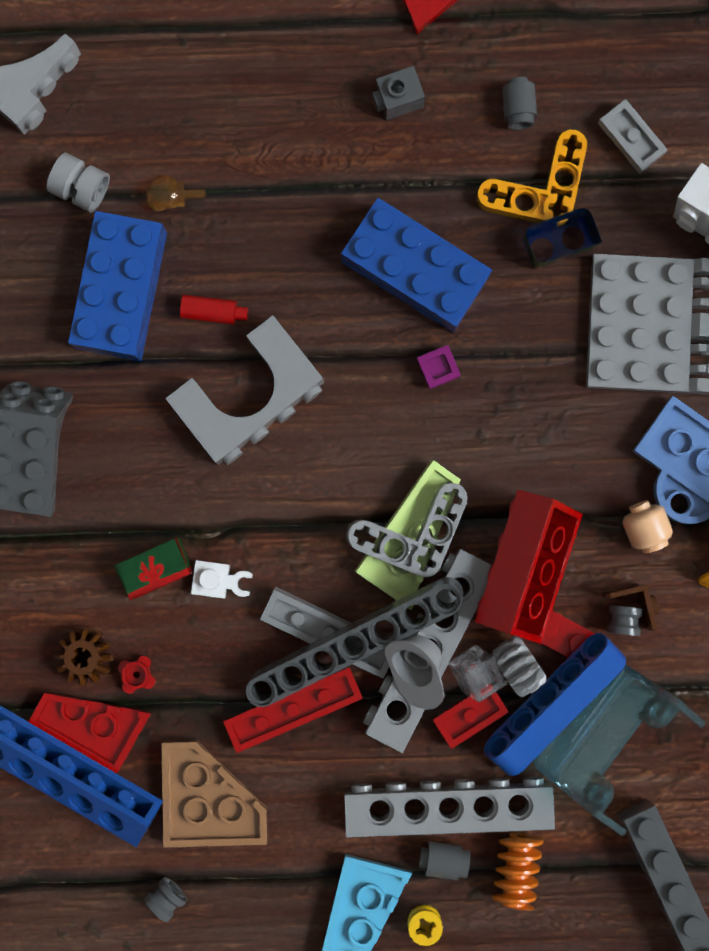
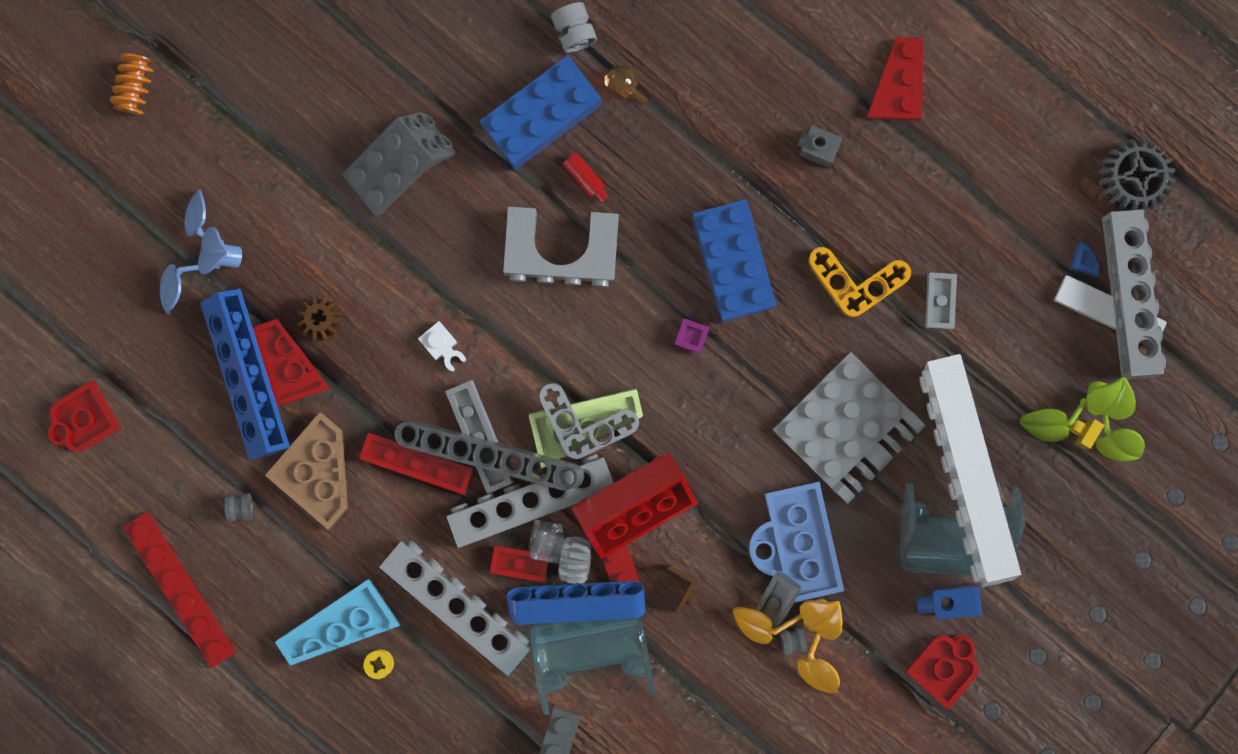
camera: 40 degrees right, 0 degrees up
(127, 671) = (339, 350): red plate -> none
(154, 568) = (409, 303): dark green piece -> none
(416, 670) = (510, 503): light grey piece -> none
(444, 861) = (425, 636): dark grey brick -> none
(518, 871) = (463, 682): orange piece -> none
(519, 103) = (889, 218): dark grey brick -> none
(579, 218) = (835, 310): clear blue piece -> none
(624, 620) = (665, 591): dark grey wheel -> none
(647, 527) = (730, 547): light nougat head -> none

